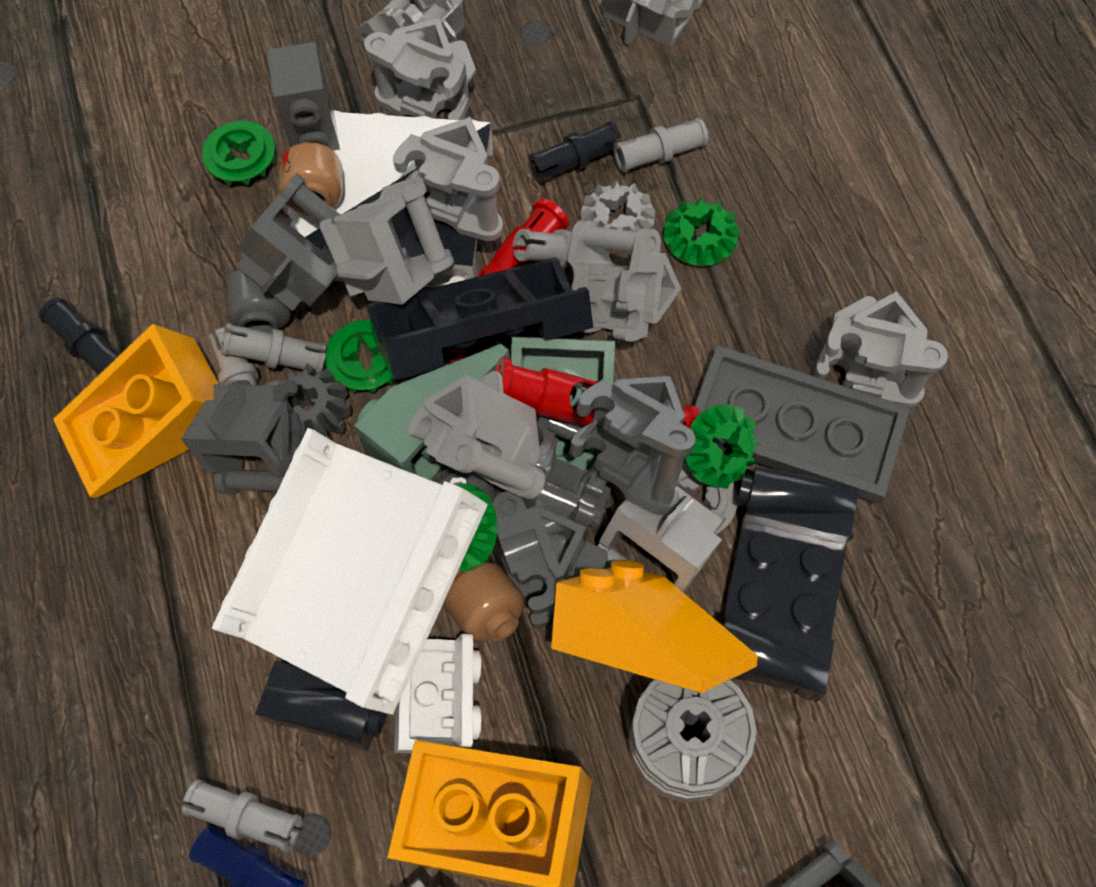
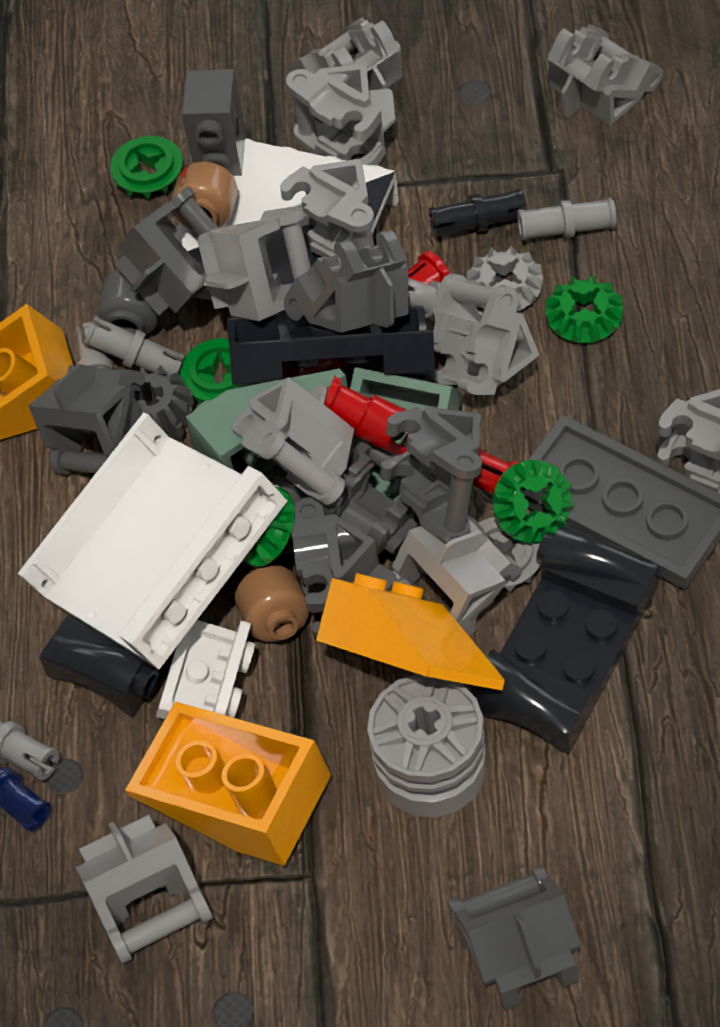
camera: 20 degrees right, 10 degrees down
(495, 262) = (355, 293): none -> dark grey piece

